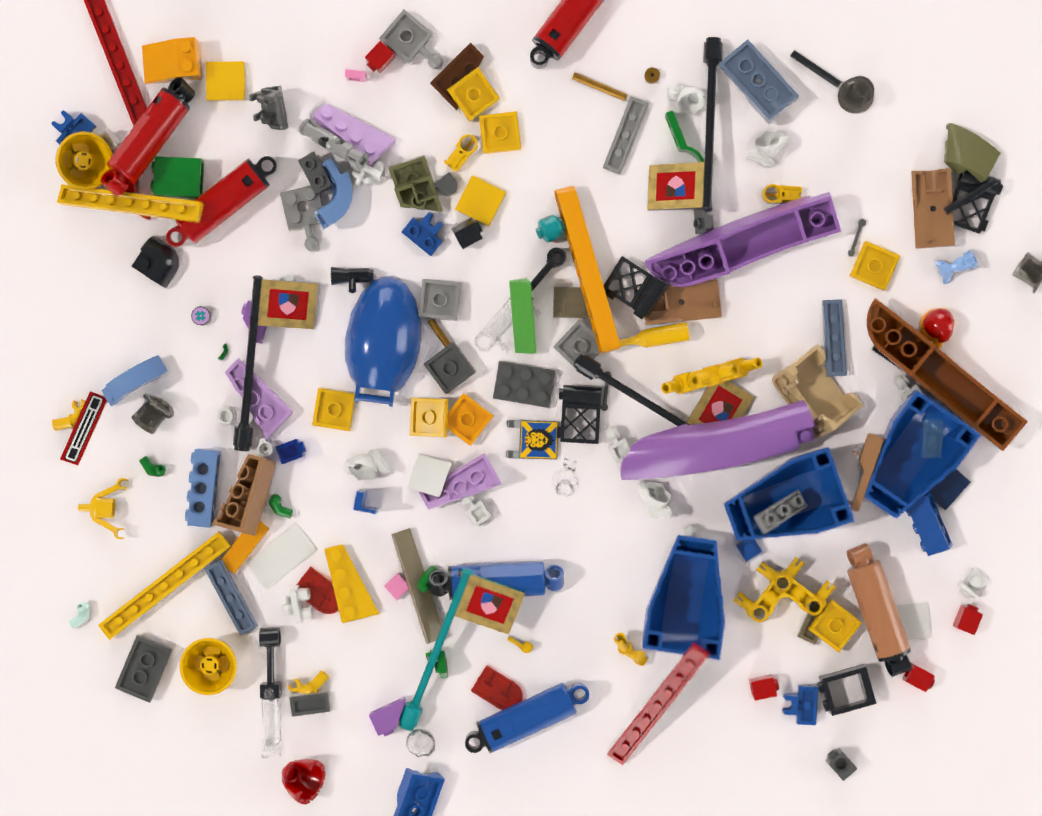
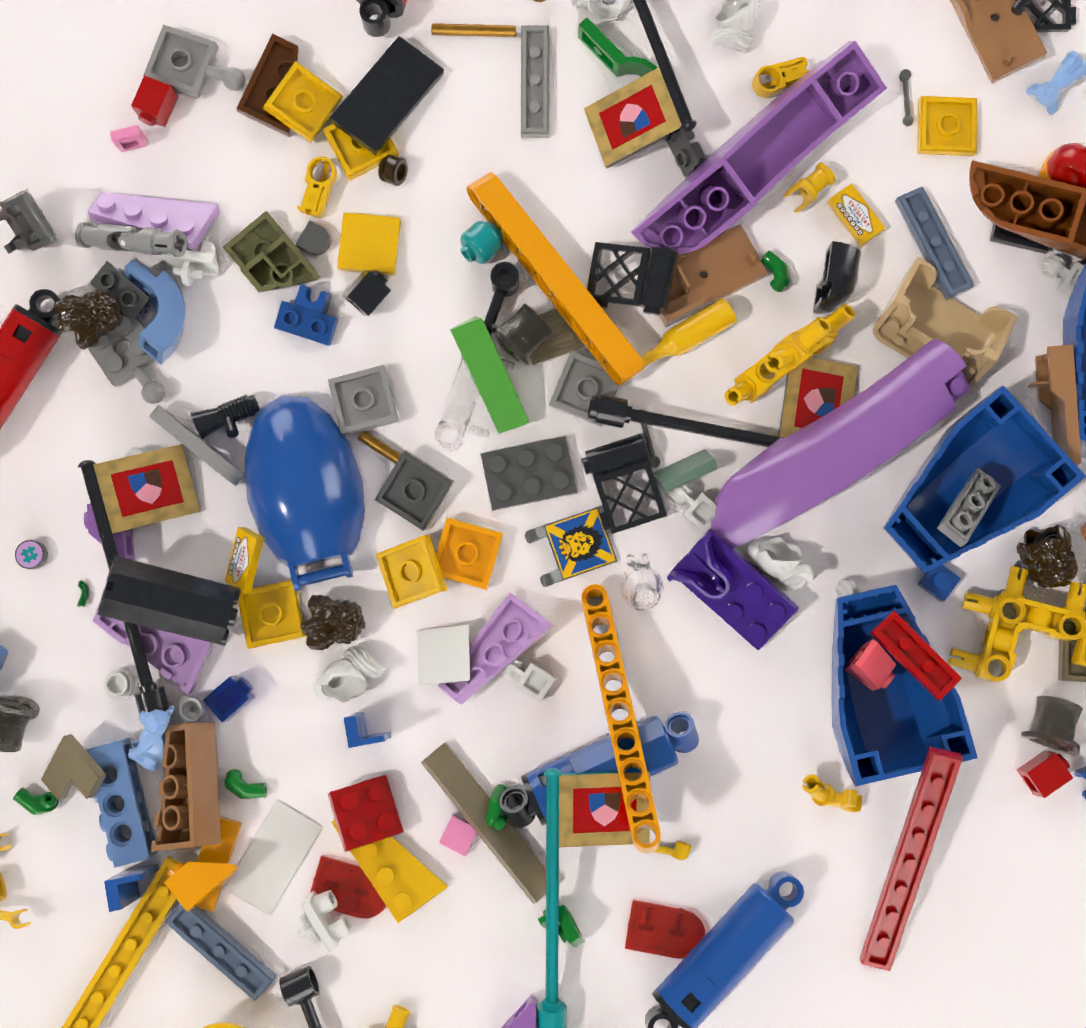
camera: 20 degrees left, 5 degrees down
(182, 455) = (71, 766): none -> dark tan tile
(188, 538) = (123, 887): none -> blue panel
(232, 463) = (150, 747): none -> light blue animal
(233, 551) = (197, 880): none -> light orange slope
(277, 380) = (169, 600): none -> black brick
(290, 184) = (88, 316): none -> dark brown hair
(326, 287) = (197, 445): none -> light grey beam
(330, 370) = (244, 559): none -> yellow tile
(347, 551) = (365, 813): none -> red plate
(369, 429) = (332, 622): none -> dark brown hair
(514, 161) = (393, 170): none -> dark brown tile
(516, 561) = (620, 728): none -> light orange beam
(528, 110) = (387, 95): none -> black tile
(553, 297) = (521, 334): none -> clear smoke piece
(620, 420) = (685, 470): none -> sand green tile
(620, 504) = (733, 589): none -> dark purple plate
(683, 583) = (871, 666): none -> coral slope
(708, 586) = (916, 655): none -> red plate
(730, 318) = (780, 271): none -> green arm
(762, 338) = (838, 277): none -> black brick
(771, 272) = (812, 185): none -> yellow piece
(780, 660) = (1055, 724): none -> clear smoke piece
(792, 301) = (856, 215): none -> tile
(820, 559) = (1049, 556): none -> dark brown hair

